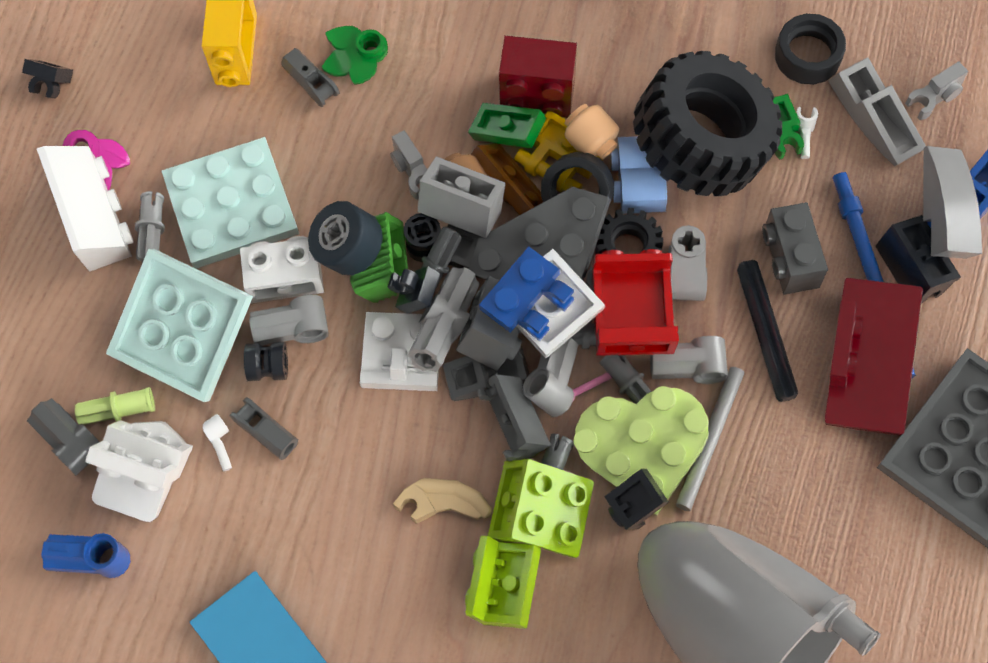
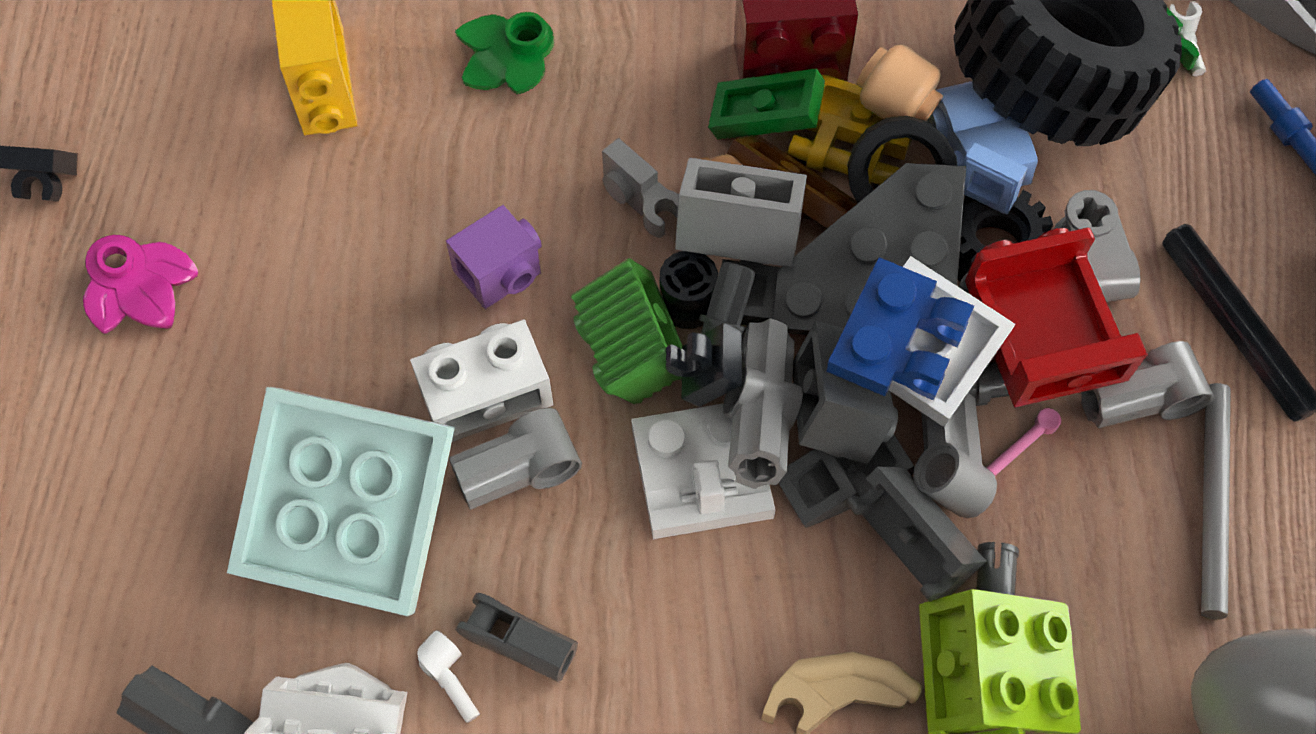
camera: 15 degrees left, 5 degrees down
(86, 205) = (146, 342): white slope -> none
(115, 406) = (260, 656): yellowish green axle -> none
(149, 224) = (252, 357): light grey axle -> none
(229, 202) = (370, 299): light aqua plate -> none
(266, 361) = (508, 525): black wheel -> none
(308, 76) = (446, 95): dark grey bar -> none
(310, 190) = (495, 256): none -> medium lavender brick
(345, 238) = (576, 309): black wheel -> none
(625, 377) = (1075, 443): dark grey axle -> none
(628, 206) = (992, 178): none -> light blue tile
(635, 500) = (1152, 619): black bracket -> none
(656, 434) = (1127, 530): yellowish green plate -> none
(794, 248) = (1243, 195): dark grey brick -> none

